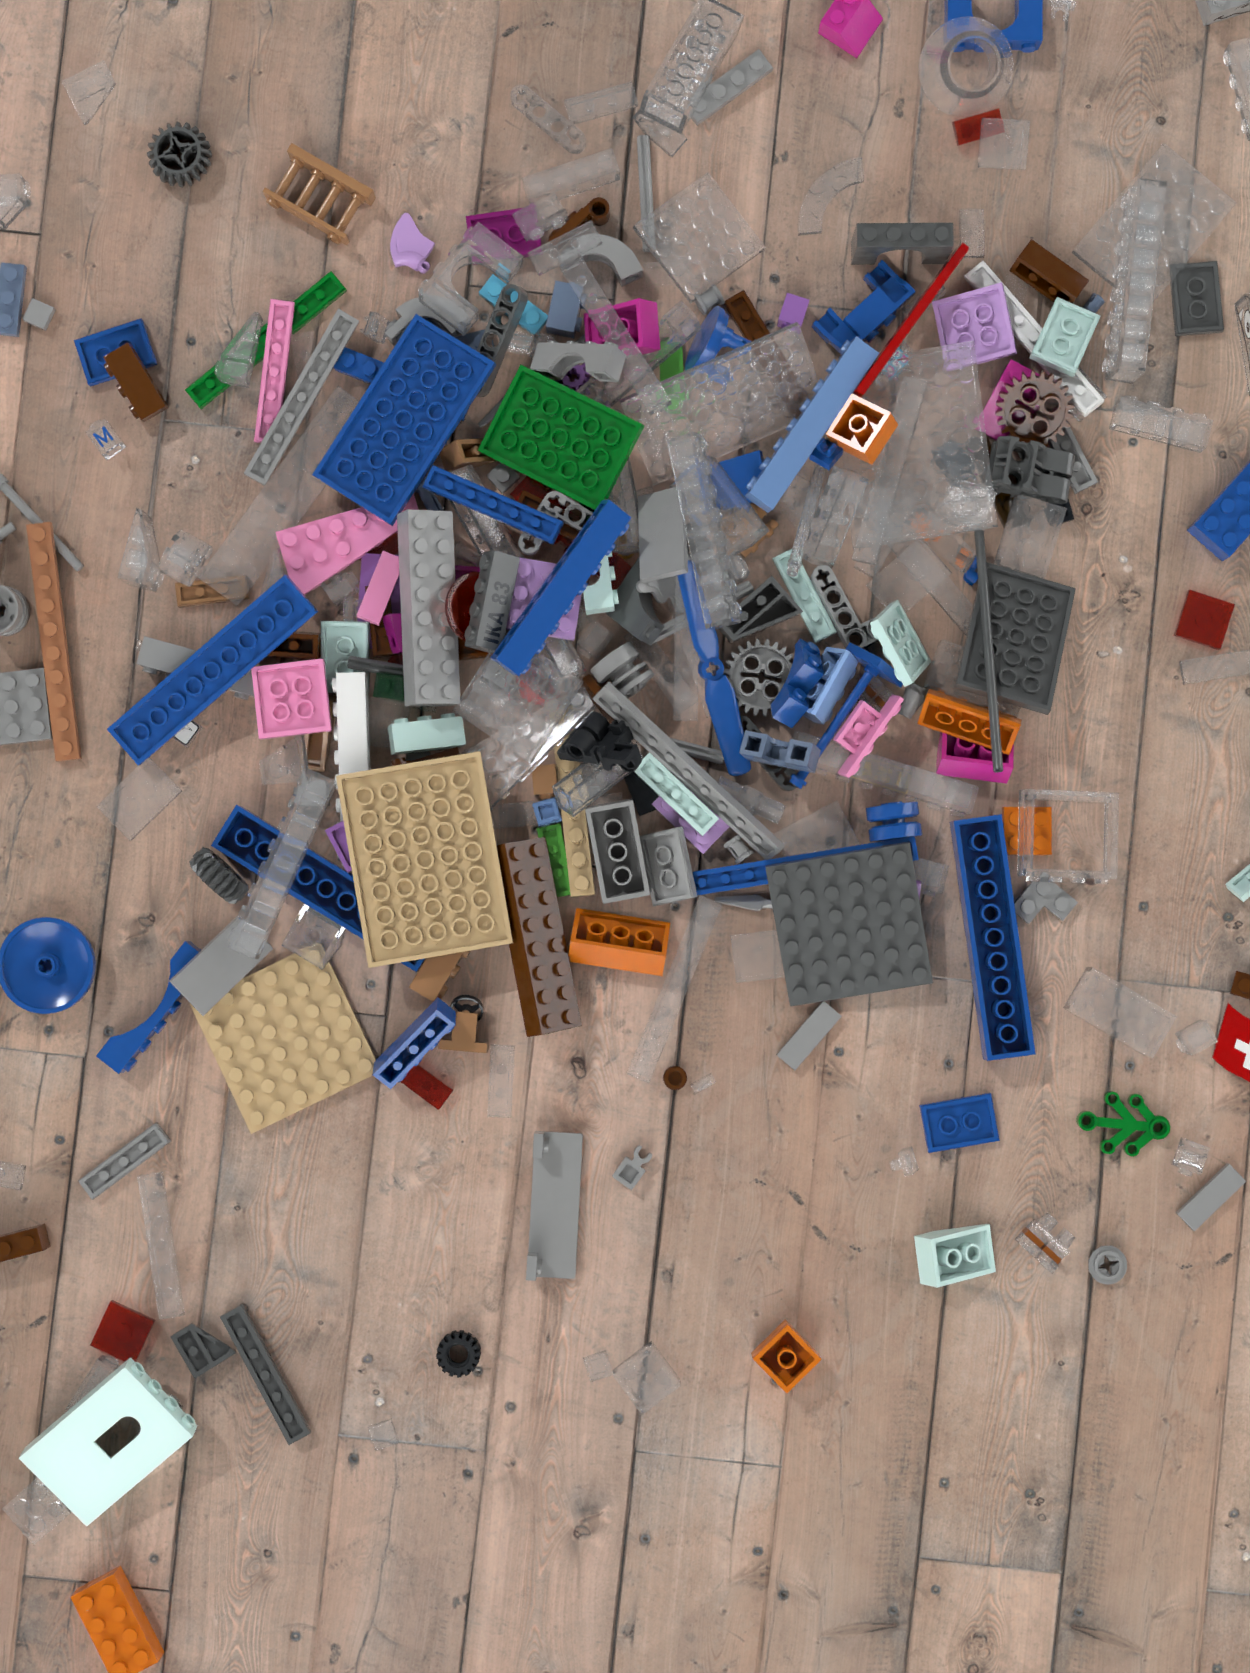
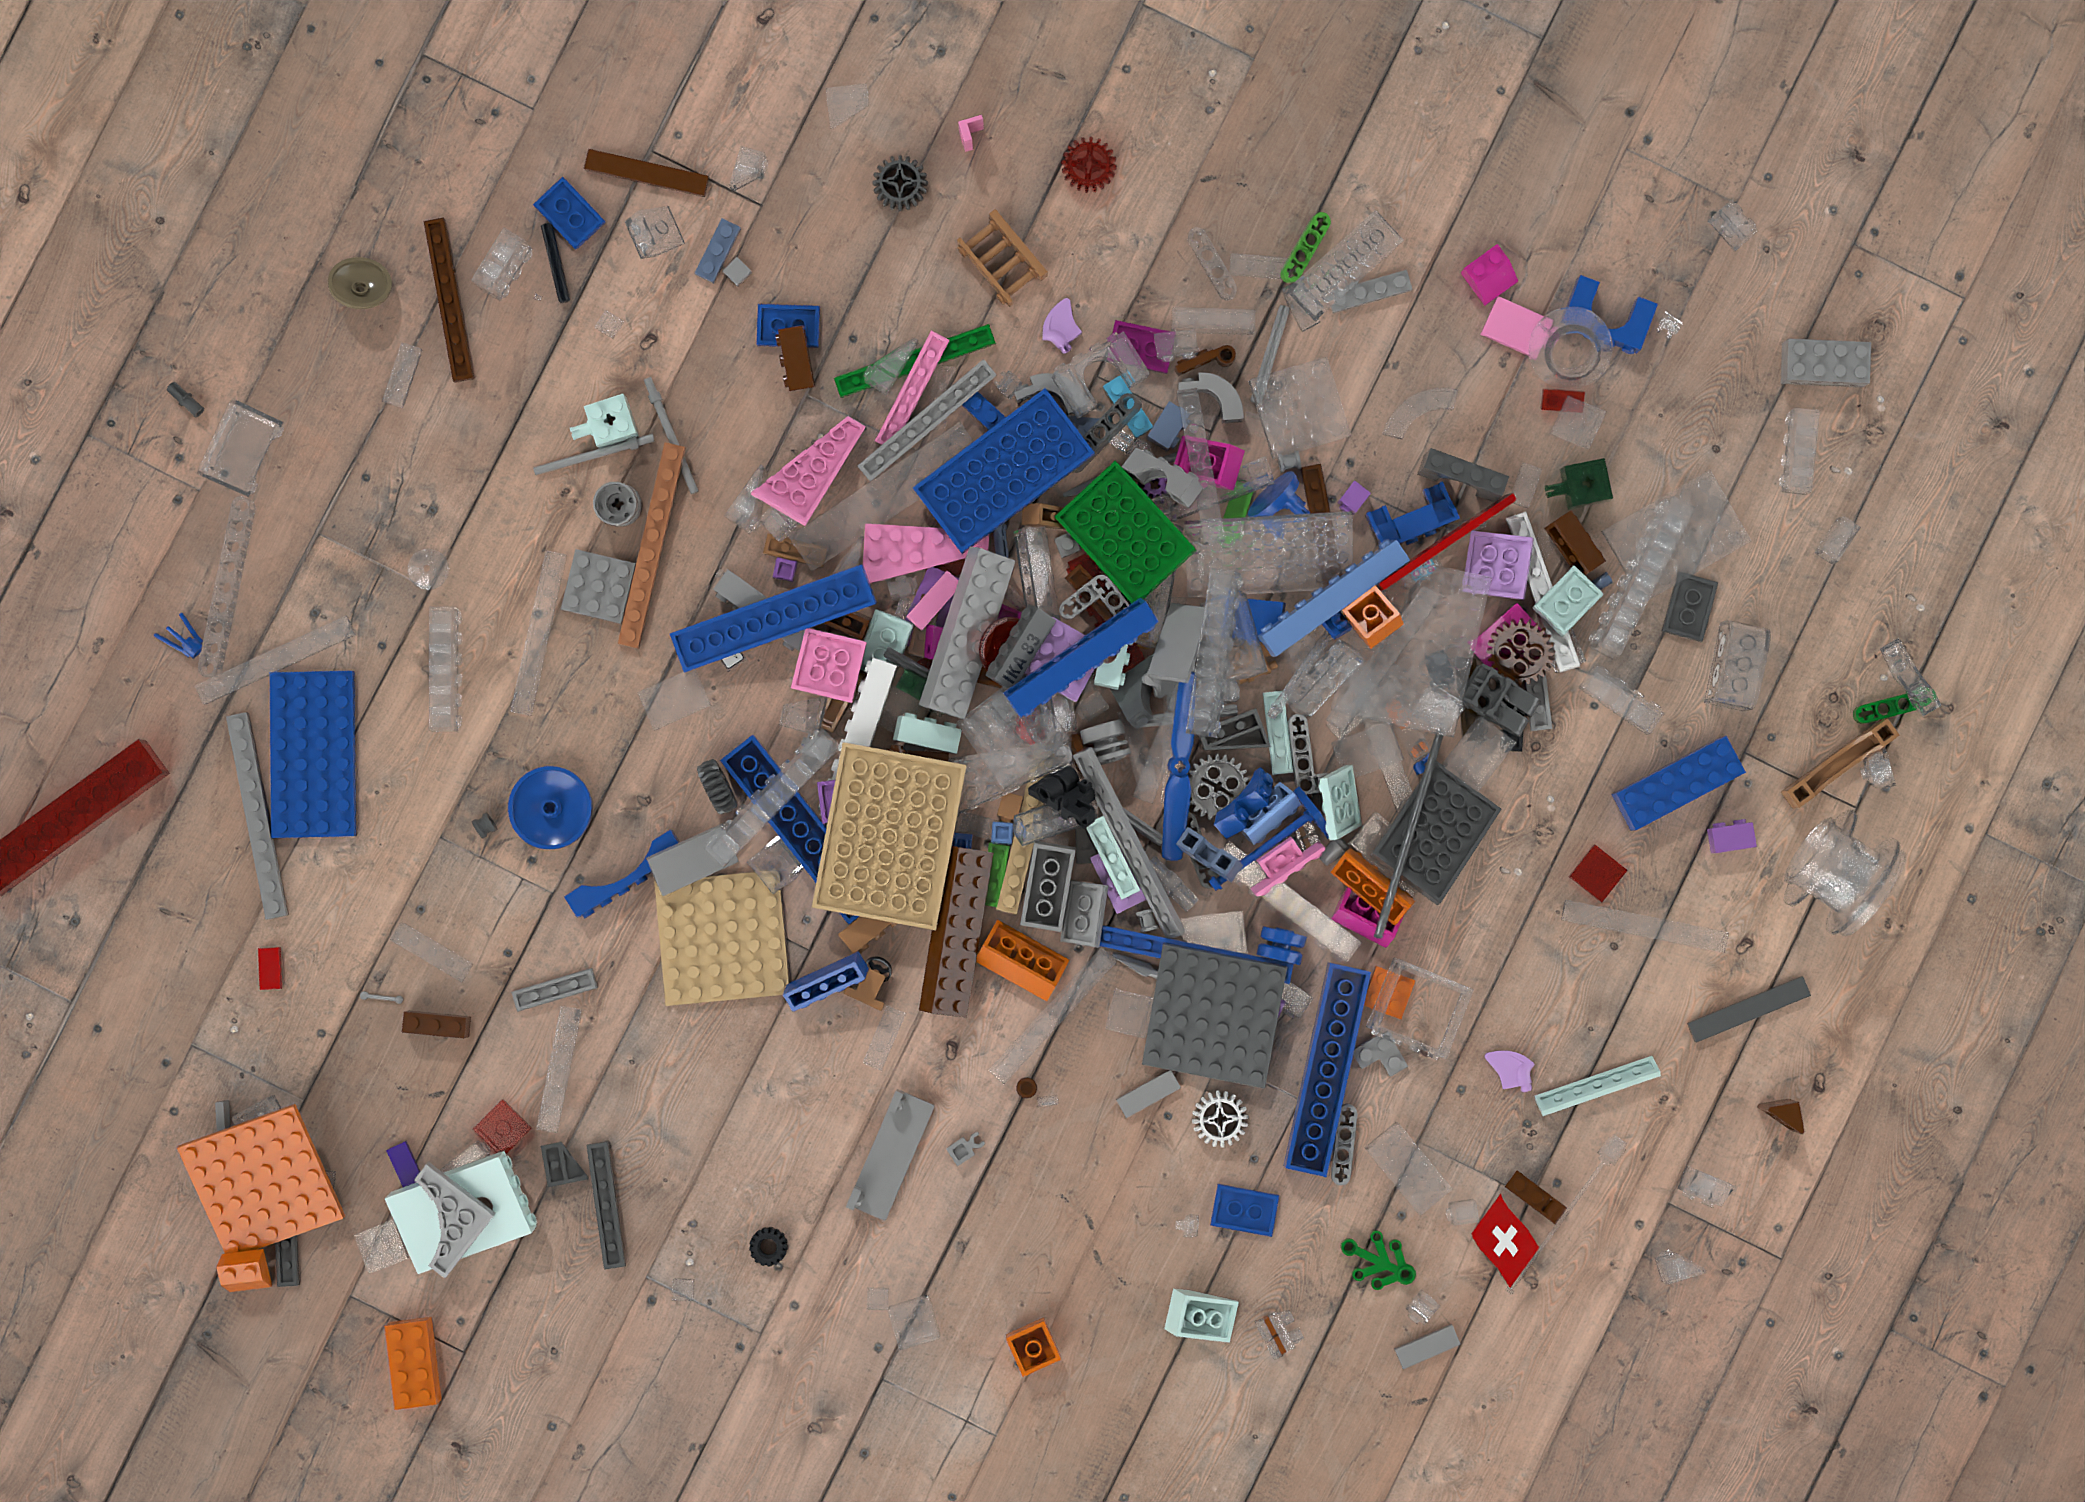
camera: 15 degrees right, 0 degrees up
(30, 1410) = (404, 1163): none -> dark purple tile
(105, 438) = (754, 394): clear brick -> none
(106, 1447) = (459, 1216): none -> light grey plate
(194, 502) = (806, 478): none -> bright pink wing
(208, 615) = (784, 569): none -> medium lavender tile
(231, 65) = (969, 126): none -> bright pink panel
(396, 55) = (1081, 163): none -> clear red gear
(427, 1086) = (822, 1020): clear red plate -> none
(493, 504) = (1050, 568): blue tile -> none
(506, 835) = (962, 840): none -> blue tile
(565, 248) = (1186, 377): clear tile -> none
(641, 64) = (1306, 248): none -> bright green beam
(887, 1015) = (1229, 1118): none -> white gear
(892, 68) = (1510, 325): none -> bright pink tile
(1029, 219) = (1572, 485): none -> clear green brick
(1042, 1011) = (1344, 1144): none -> light grey beam
(1117, 1269) = (1328, 1377): light grey gear -> none
(1190, 863) = (1512, 1069): none -> lavender arm

